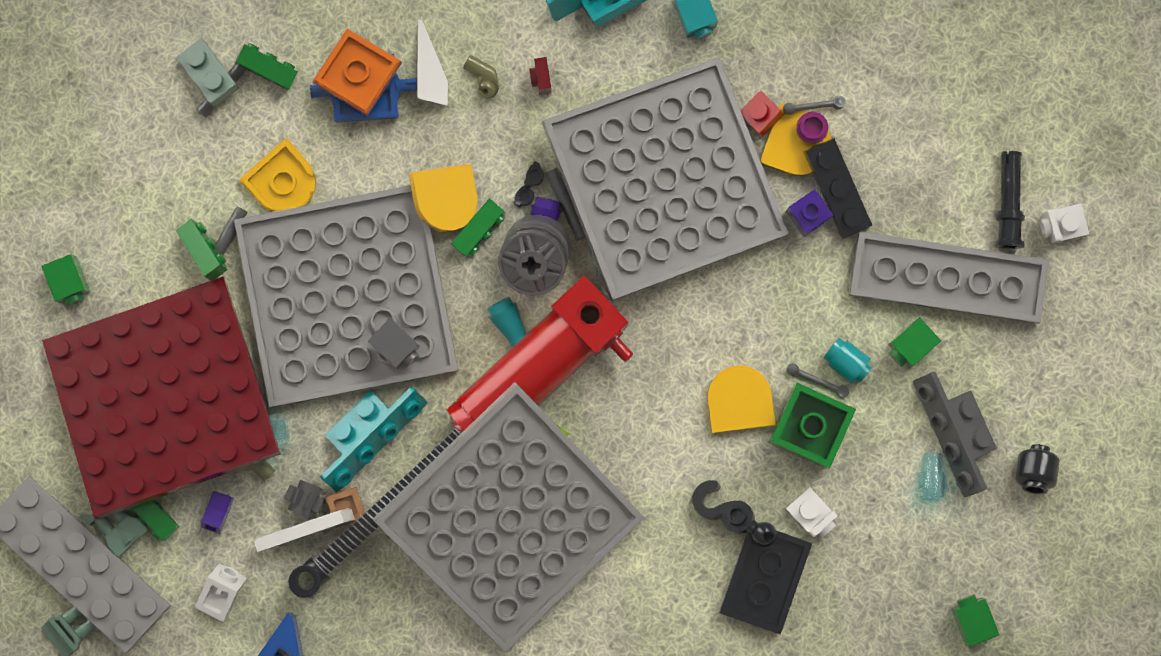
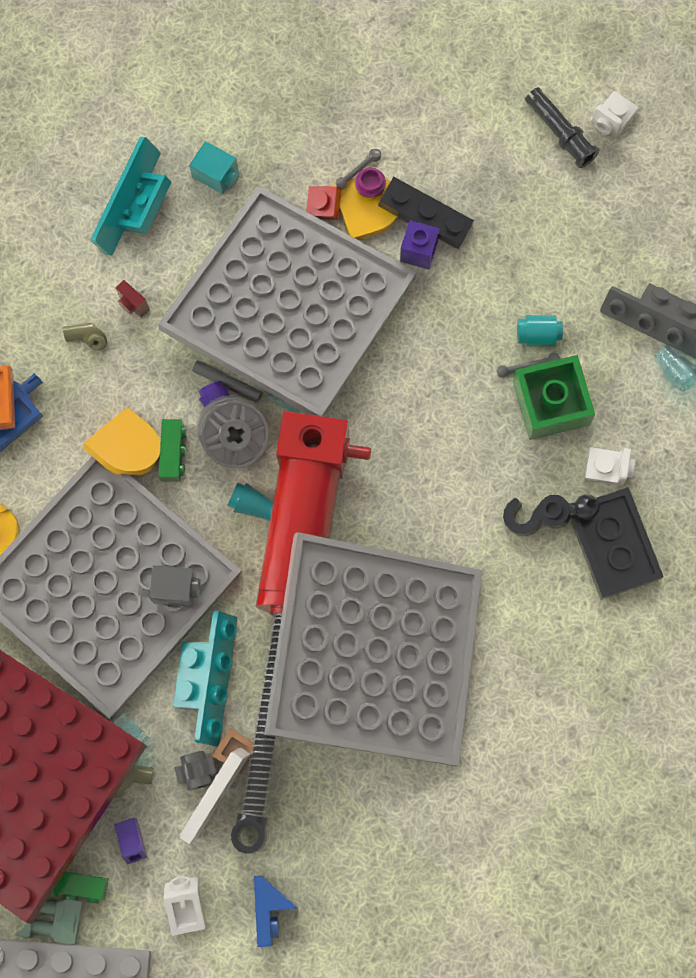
camera: 35 degrees left, 10 degrees down
(430, 76) = (46, 367): white sticker -> none
(533, 178) = (186, 380): black piece -> none
(739, 400) = (481, 425): yellow tile -> none
(913, 343) = (578, 280): green brick -> none
(949, 277) = (562, 214): light grey plate -> none

